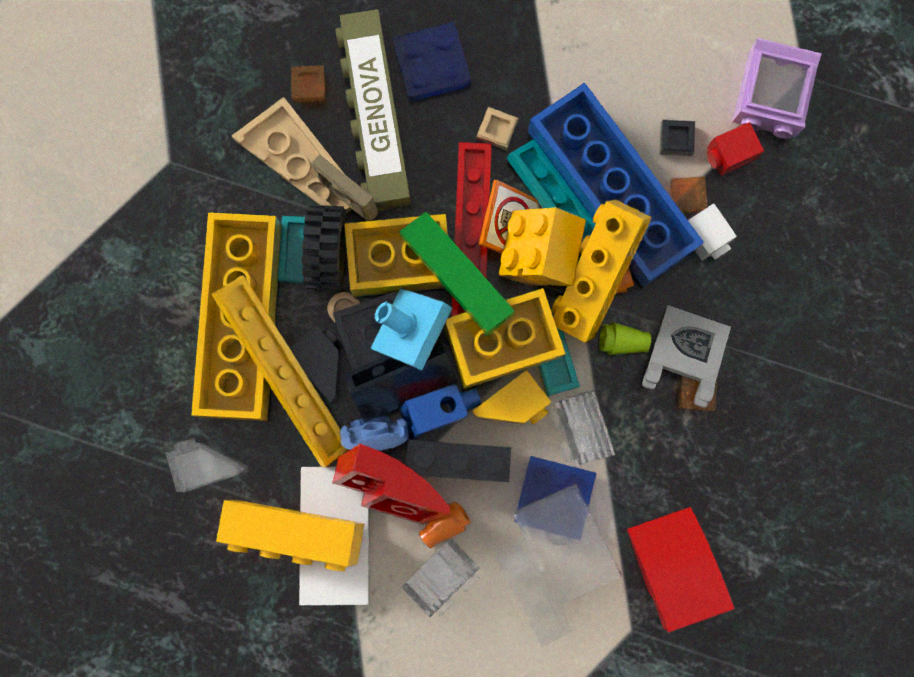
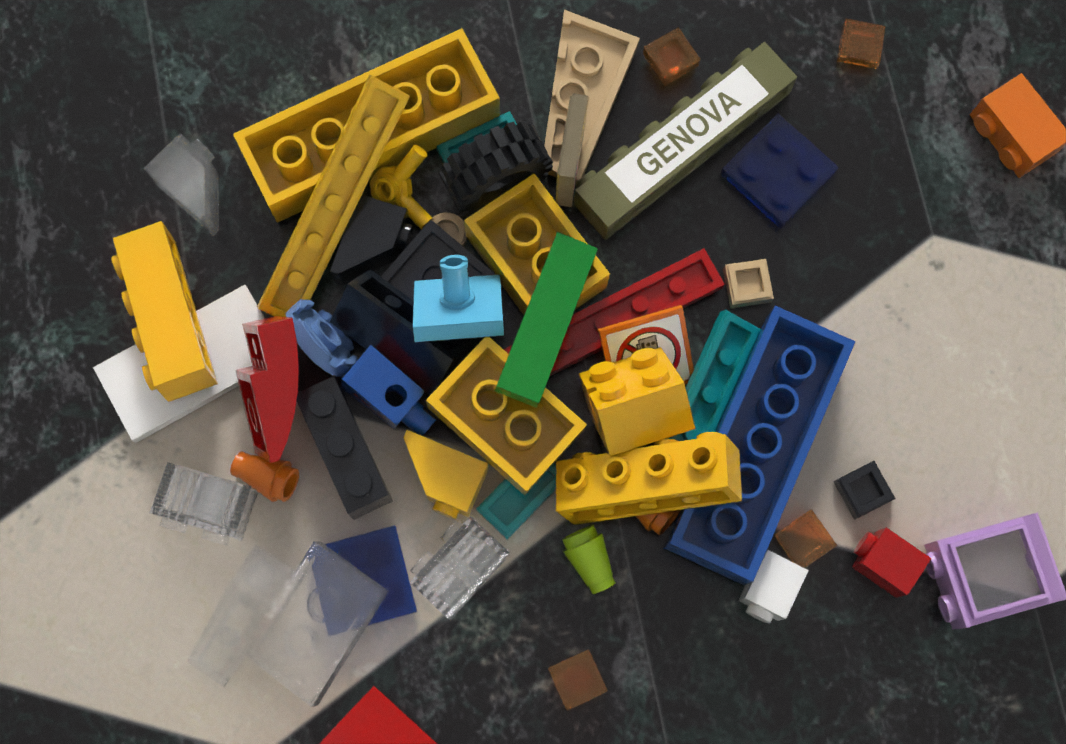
camera: 55 degrees right, 5 degrees down
(293, 324) = (394, 185): none -> yellow piece
(688, 348) = (623, 638): light grey flag -> none

